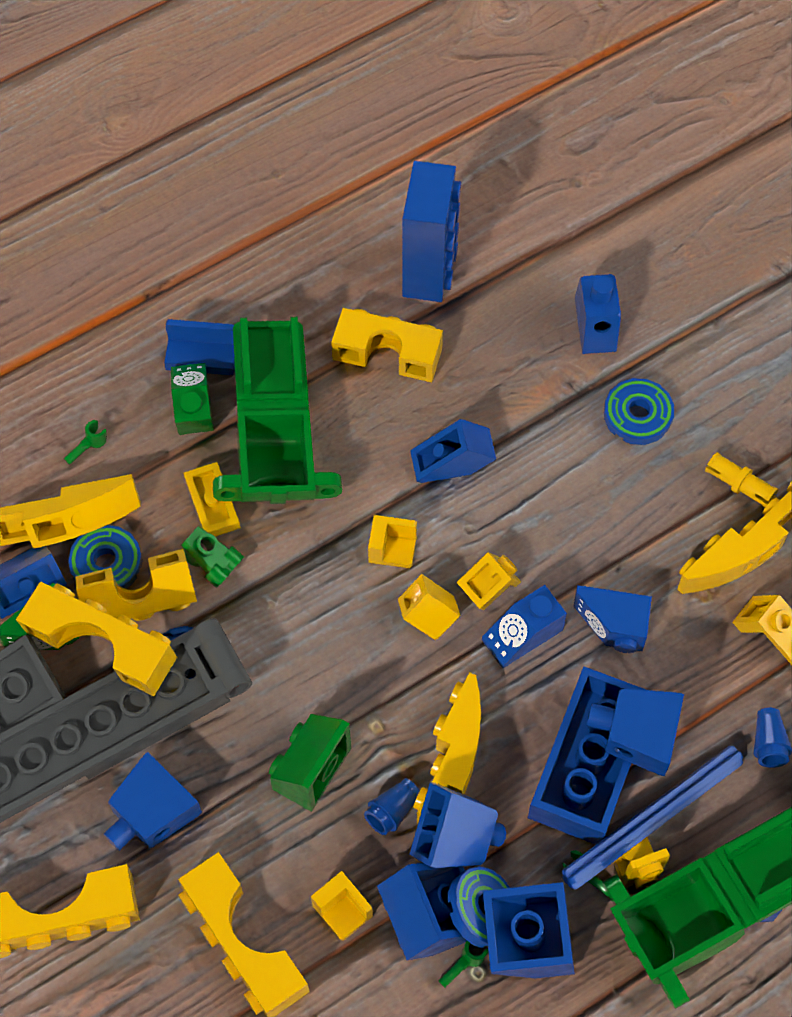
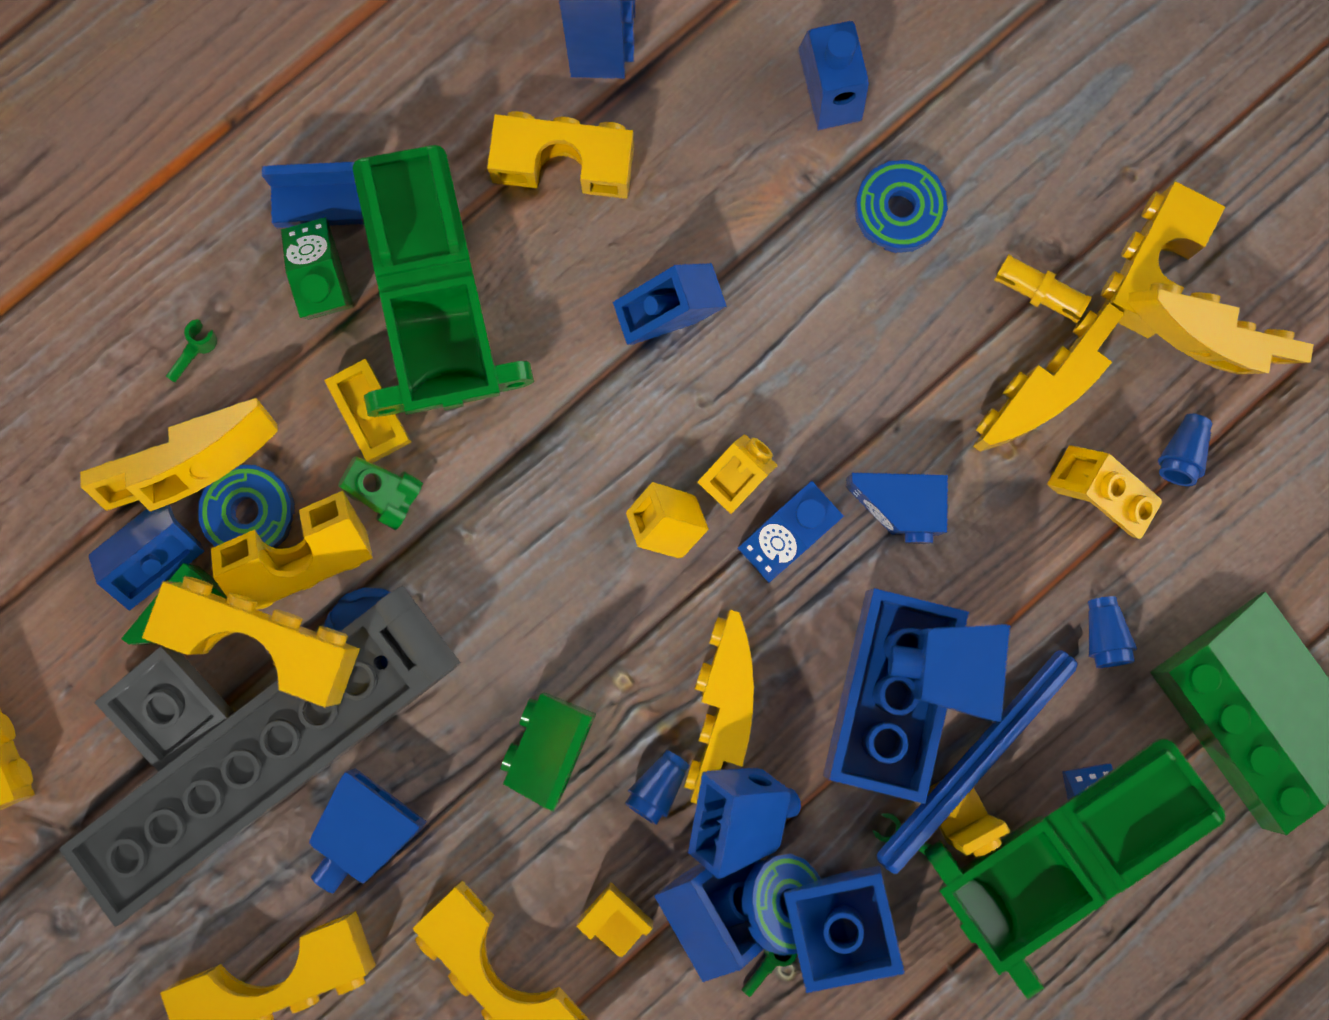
camera: 10 degrees left, 20 degrees up
(392, 541) = (608, 437): yellow panel -> none

